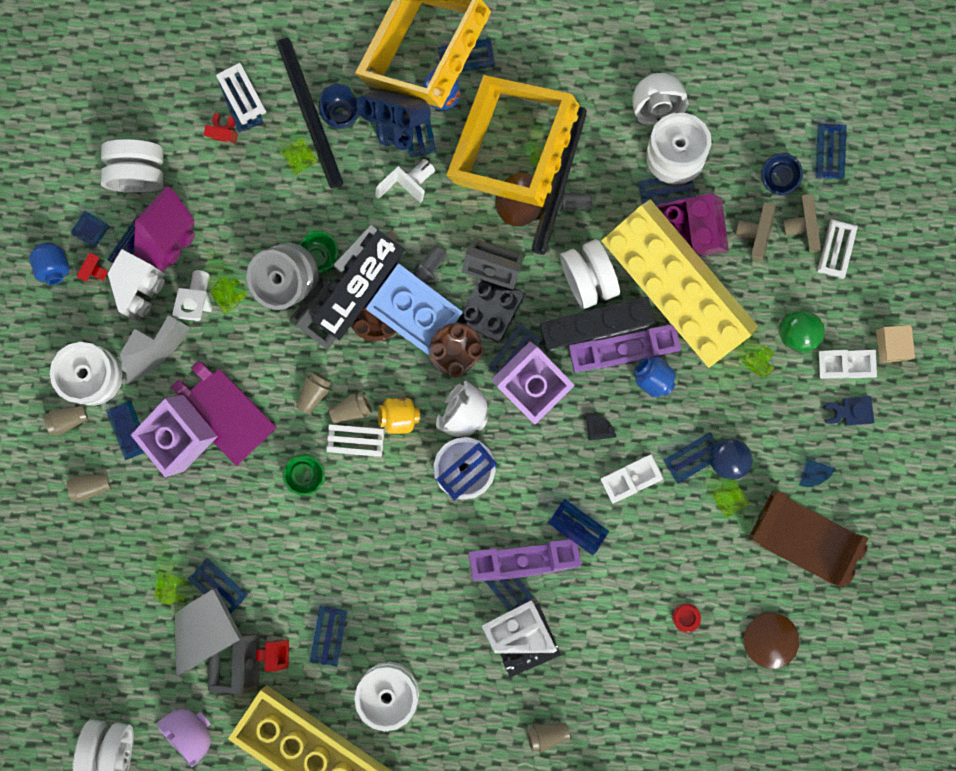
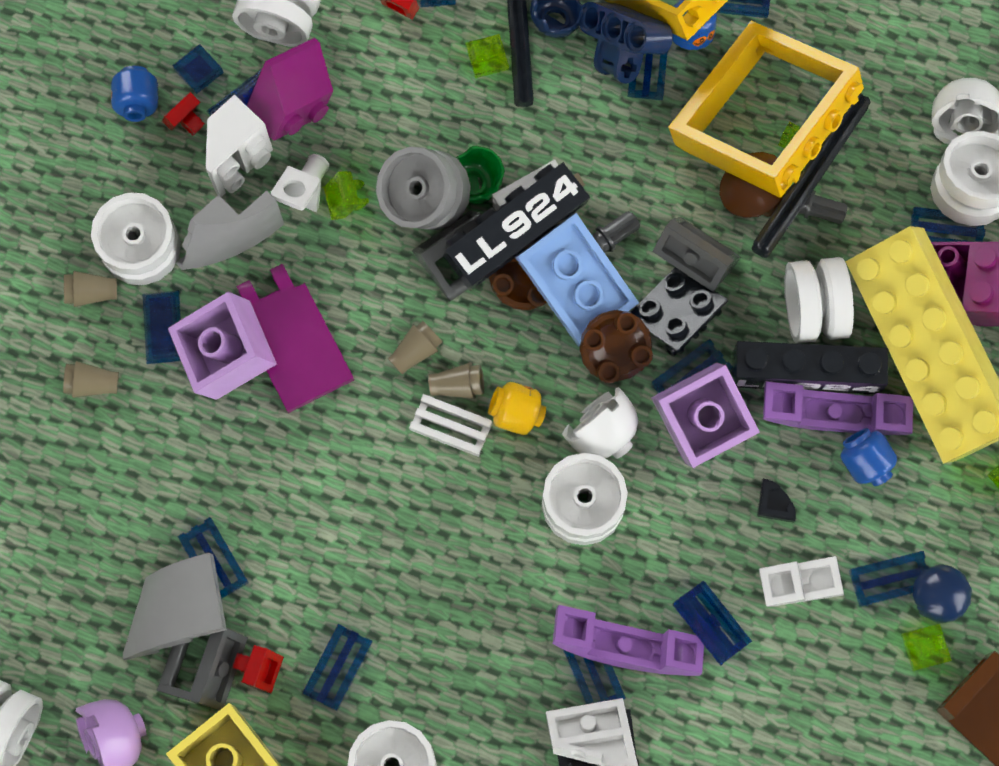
camera: 15 degrees right, 10 degrees down
(166, 588) = (146, 539): clear neon green tile -> none
(295, 470) = (361, 439): green hair -> none
(410, 181) = (618, 124): white bracket -> none
(485, 455) = (616, 484): clear blue tile -> none

